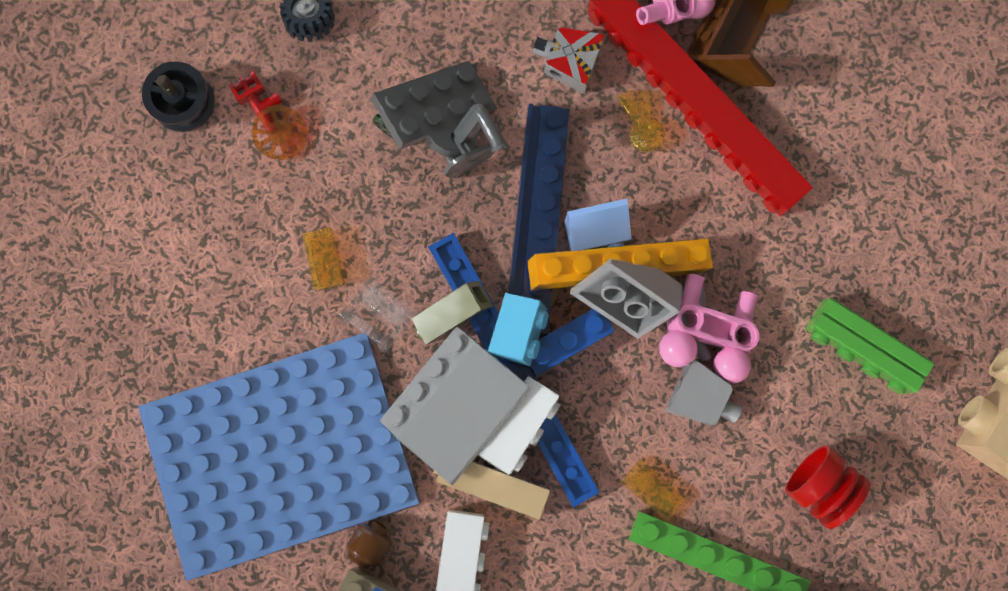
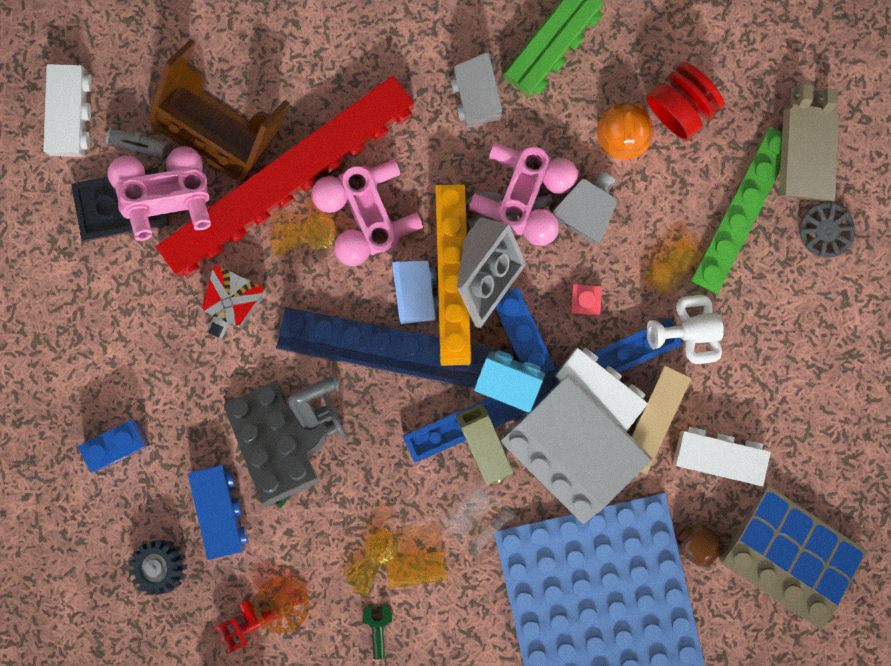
camera: 85 degrees left, 5 degrees up
(262, 228) = (378, 629): none -> dark green bar
(338, 221) = (379, 550): none -> clear yellow piece
(365, 63) = (218, 511): none -> blue brick
(589, 517) = (694, 329): none -> white piece
(608, 404) = (586, 300): none -> coral plate
(685, 141) = (352, 245): none -> bright pink piece
(786, 429) = (625, 131): none -> orange helmet
(808, 272) = (477, 91): none -> light grey slope

